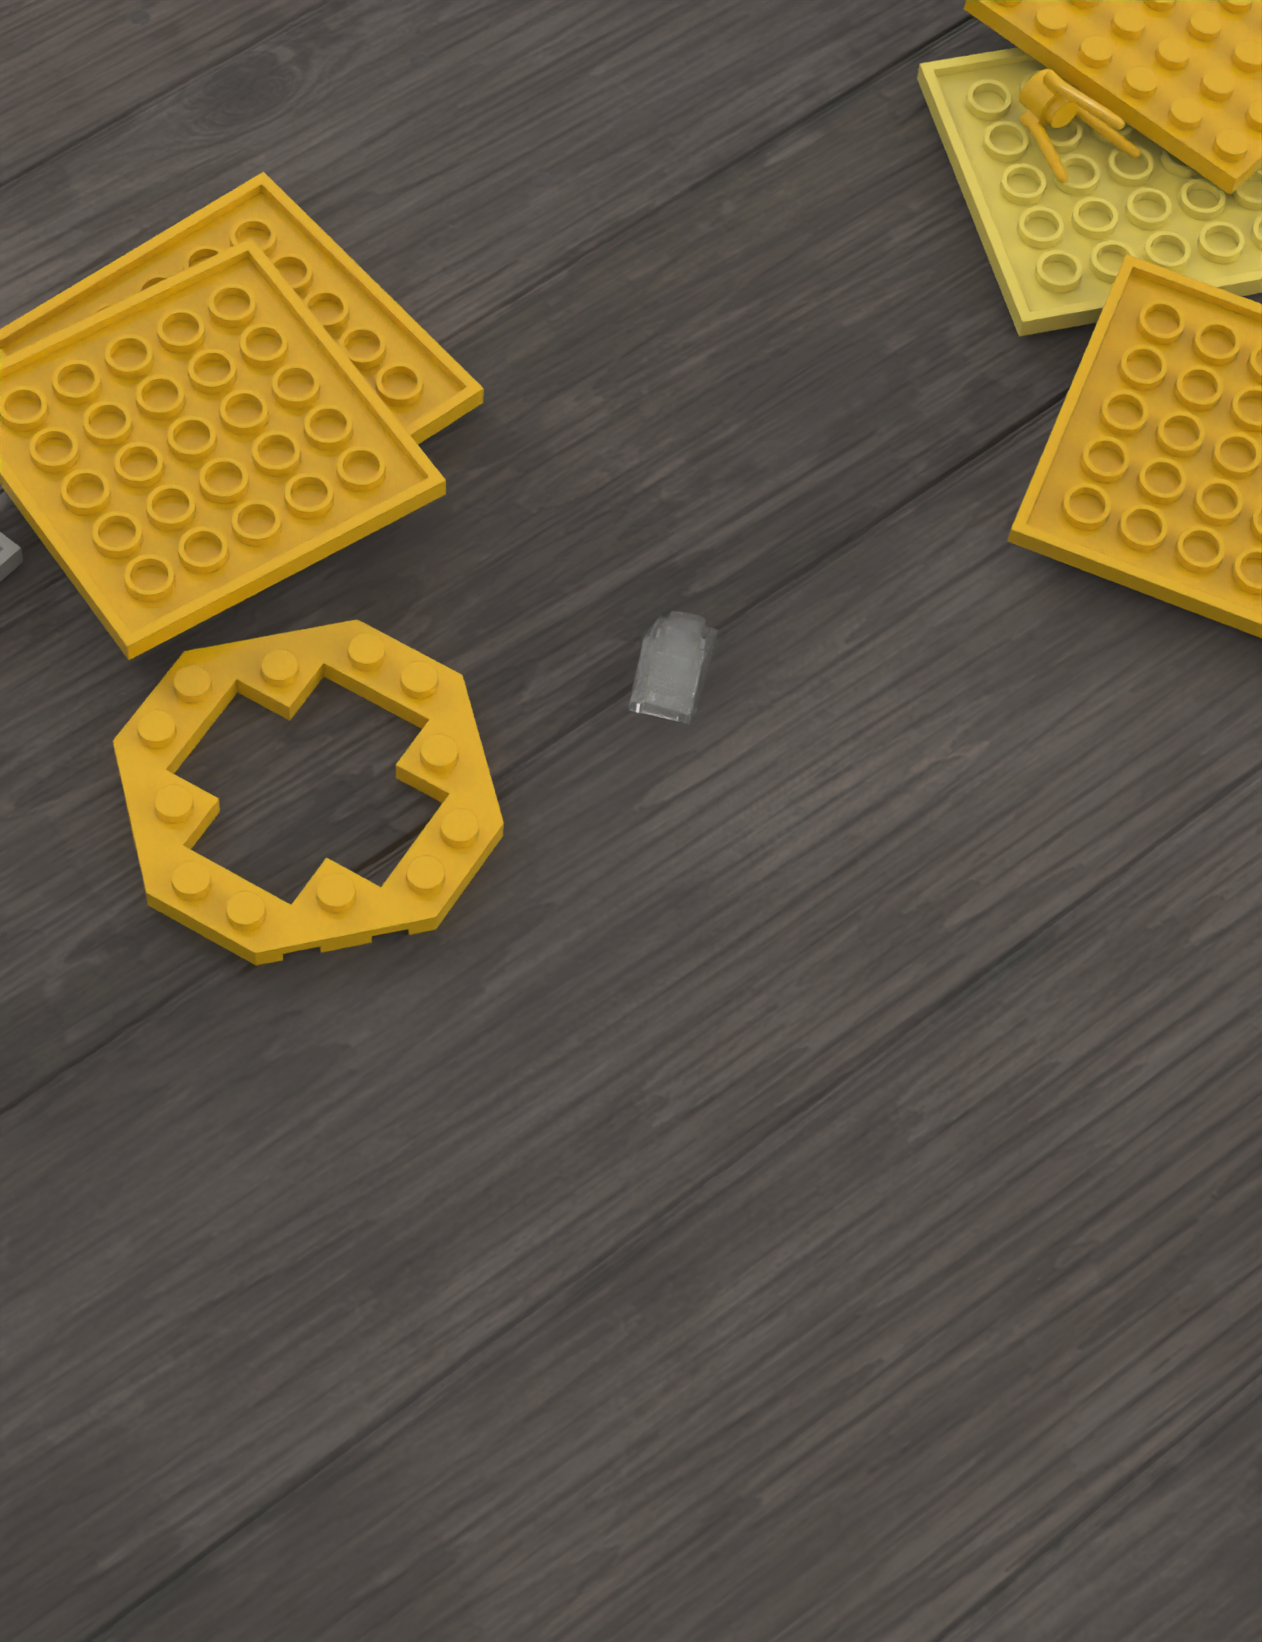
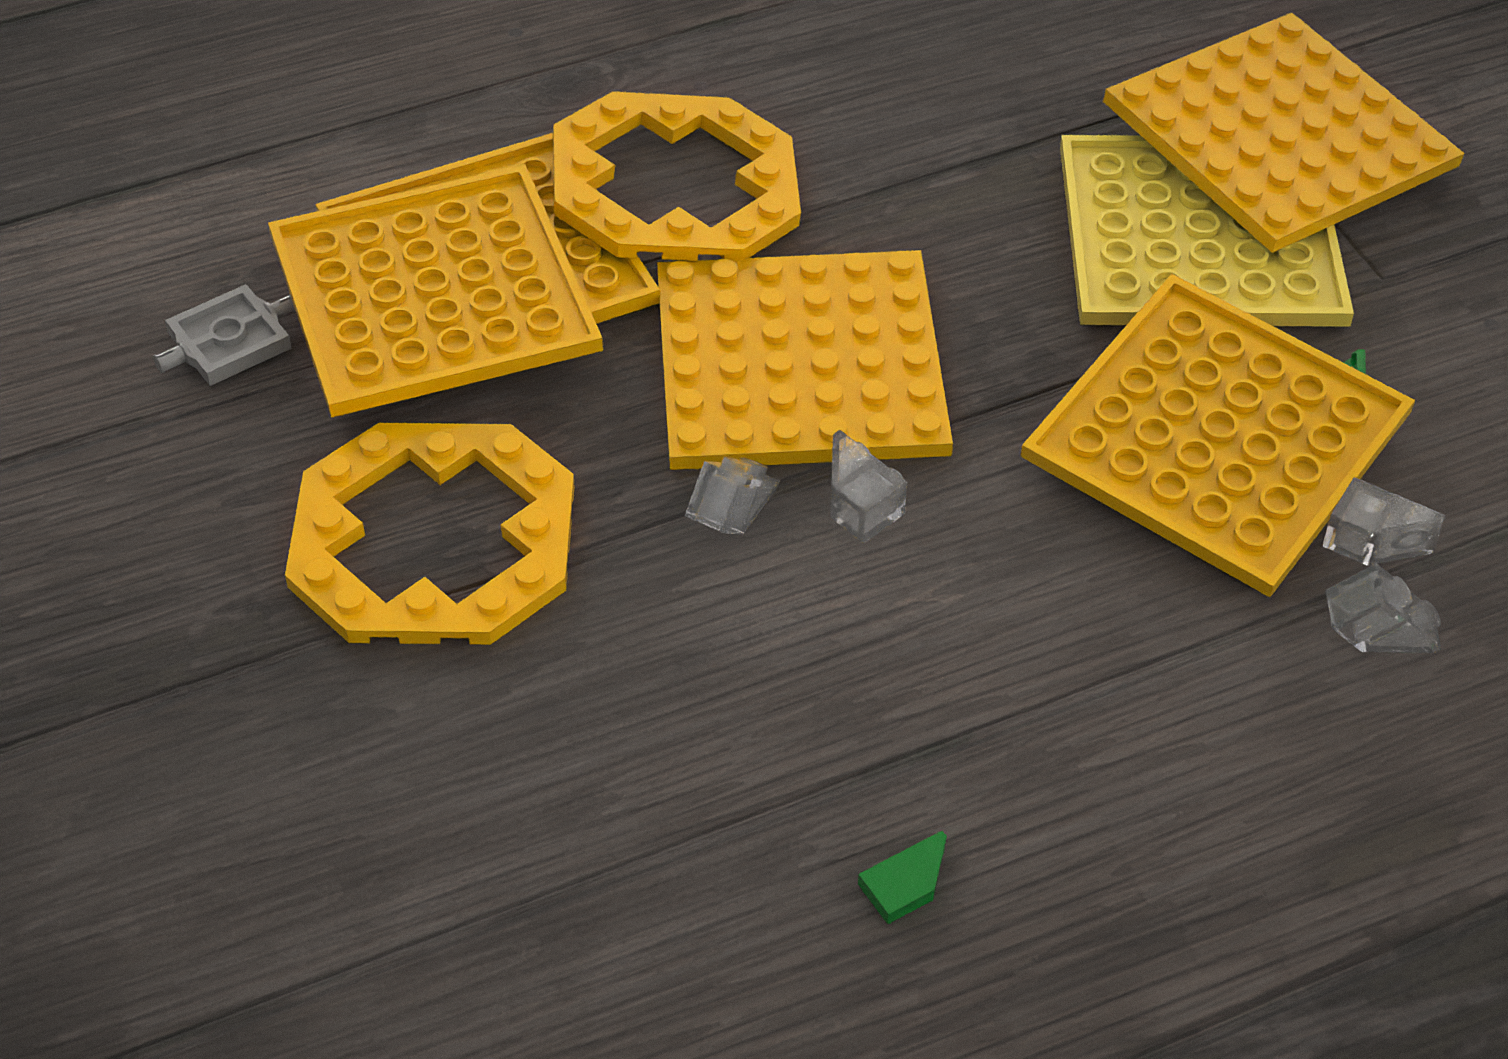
camera: 20 degrees right, 10 degrees down
(479, 301) = (677, 234): none -> yellow plate
(687, 452) = (793, 349): none -> yellow plate
(827, 624) = (863, 489): none -> clear slope
(1040, 1131) = (905, 879): none -> green tile
(1055, 104) = (1152, 171): yellow plant -> none

